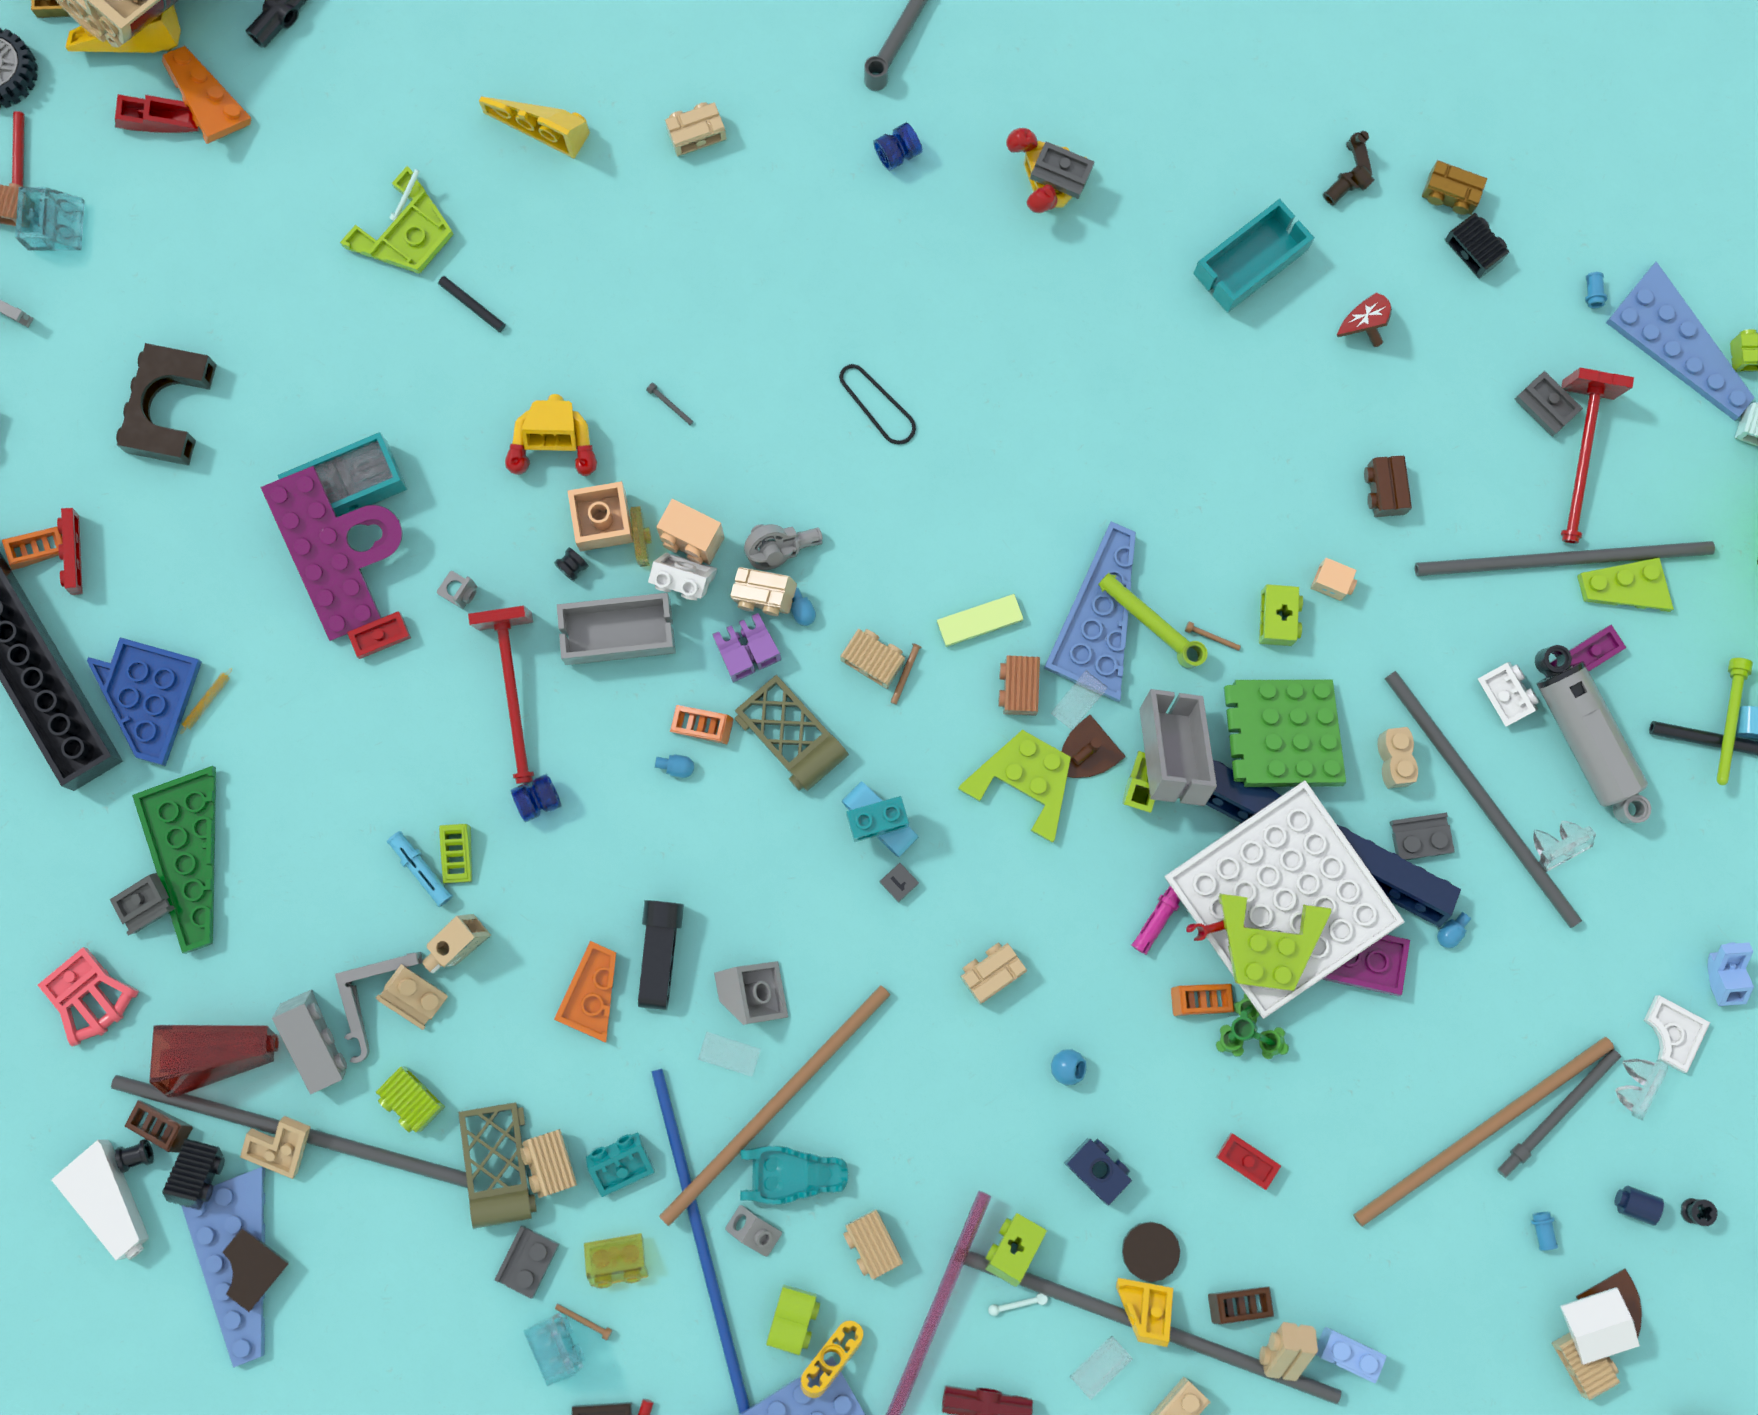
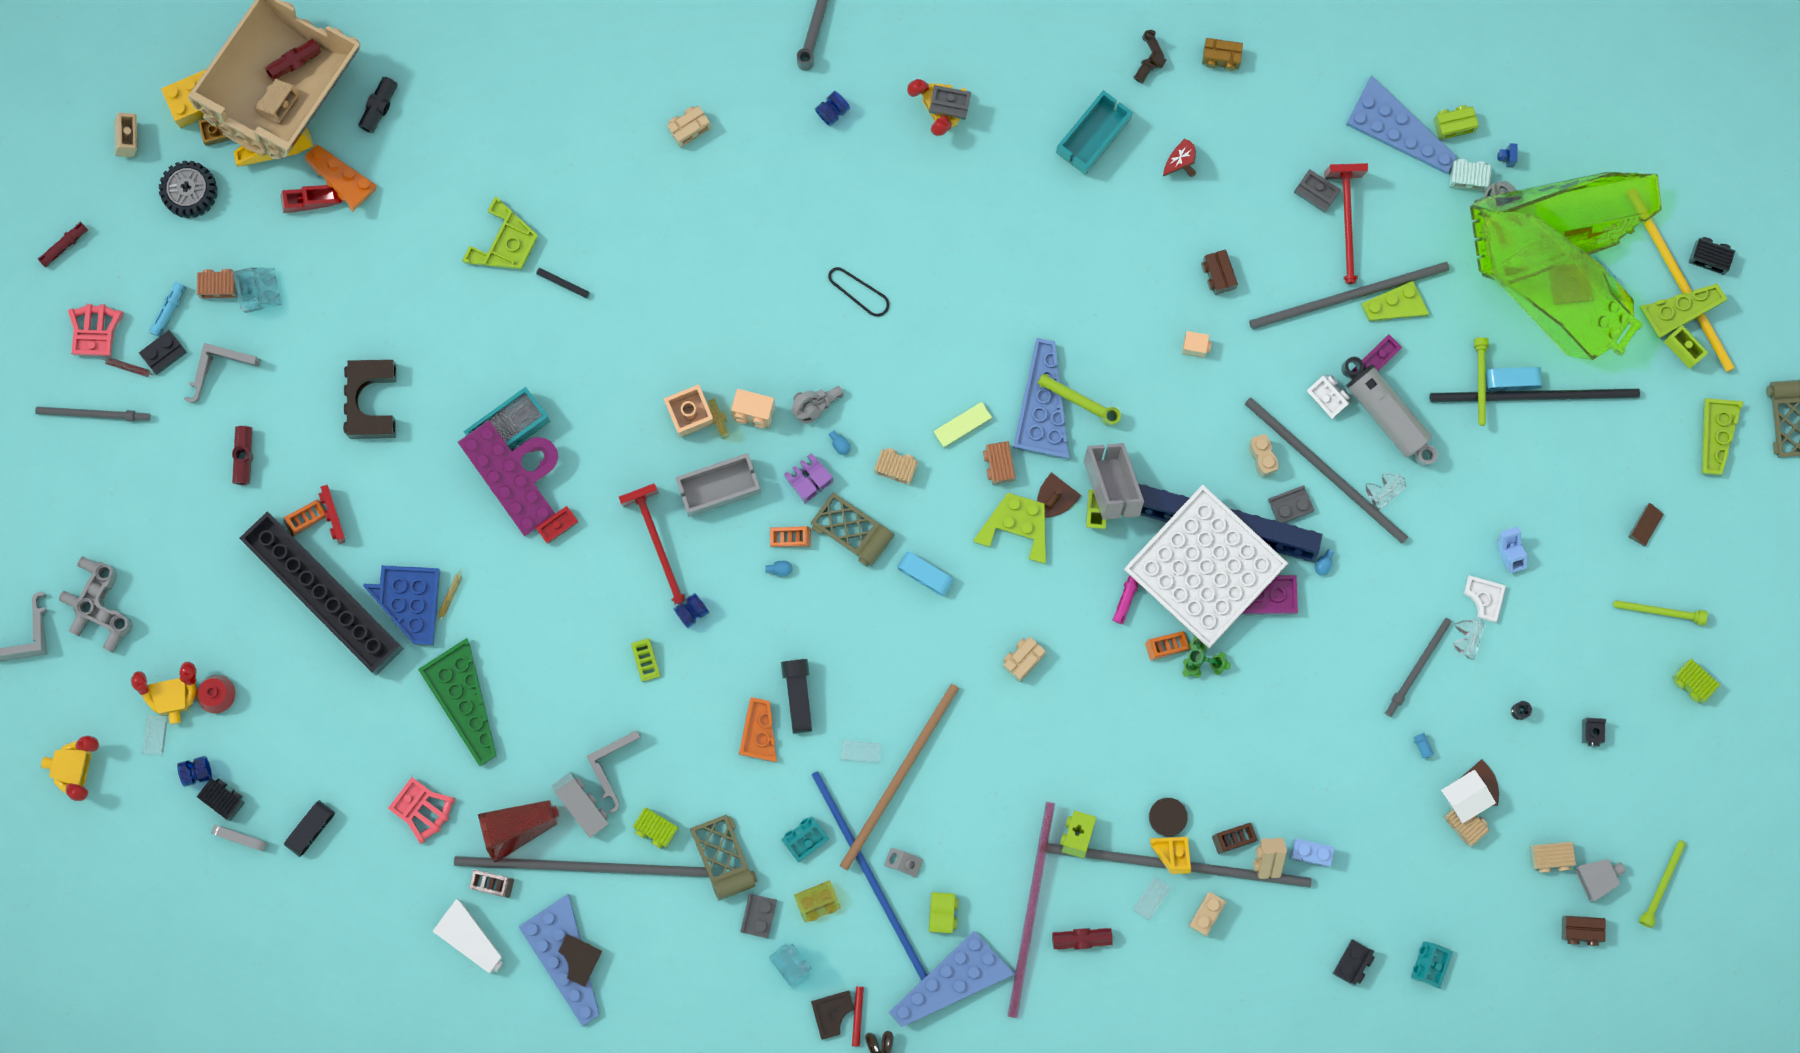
camera: 10 degrees left, 0 degrees up
(18, 148) = (218, 242): red bar -> none
(134, 1155) = (481, 905): black bush -> none
(142, 903) = (444, 739): dark grey plate -> none
(193, 1174) = (525, 907): black brick -> none
(280, 1153) = (578, 882): tan plate -> none
(393, 216) = (494, 233): light aqua piece -> none
(412, 859) = (606, 661): medium azure pin -> none
(412, 996) = (640, 760): tan plate -> none
(455, 942) = (666, 712): tan torso -> none
(464, 594) = (609, 485): light grey bracket -> none
(546, 124) = (587, 146): yellow wedge -> none
(548, 1163) = (758, 848): tan brick -> none
(551, 427) = (641, 357): yellow torso -> none
(571, 564) = (676, 448): black wheel -> none
(605, 1333) = (822, 949): medium nougat piece -> none
(652, 388) = (702, 315): dark grey piece -> none
(681, 575) = (754, 439): white plate -> none
(752, 992) = (866, 706): light grey slope -> none
(763, 591) = (811, 437): brick -> none
(788, 1174) = (917, 820): teal animal -> none
(830, 1346) = (974, 939): yellow beam -> none
(873, 1245) = (984, 852): tan brick -> none
(877, 819) = (924, 573): teal brick -> none
(899, 882) = (947, 613): dark grey tile -> none
(905, 673) = (920, 472): medium nougat piece -> none
(1040, 1299) = (1102, 864): light aqua hinge -> none
(1068, 1067) = (1087, 709): dark azure piece -> none
(1079, 700) = (1041, 464): clear tile -> none
(1109, 1185) = (1110, 771): dark blue brick -> none
(1190, 627) = (1106, 398): medium nougat piece -> none
(1203, 930) = (1156, 598): red piece -> none
(1248, 1161) = (1219, 744): red plate -> none
(1270, 956) = (1204, 605): lime wing -> none
(1272, 627) = (1162, 387): lime brick -> none
(1284, 733) = (1184, 455): bright green hinge -> none
(1477, 245) = (1246, 90): black brick -> none
(1483, 1131) = (1371, 690): medium nougat piece -> none
(1595, 290) = (1334, 105): dark azure pin -> none
(1639, 1205) = (1481, 714): dark blue brick -> none

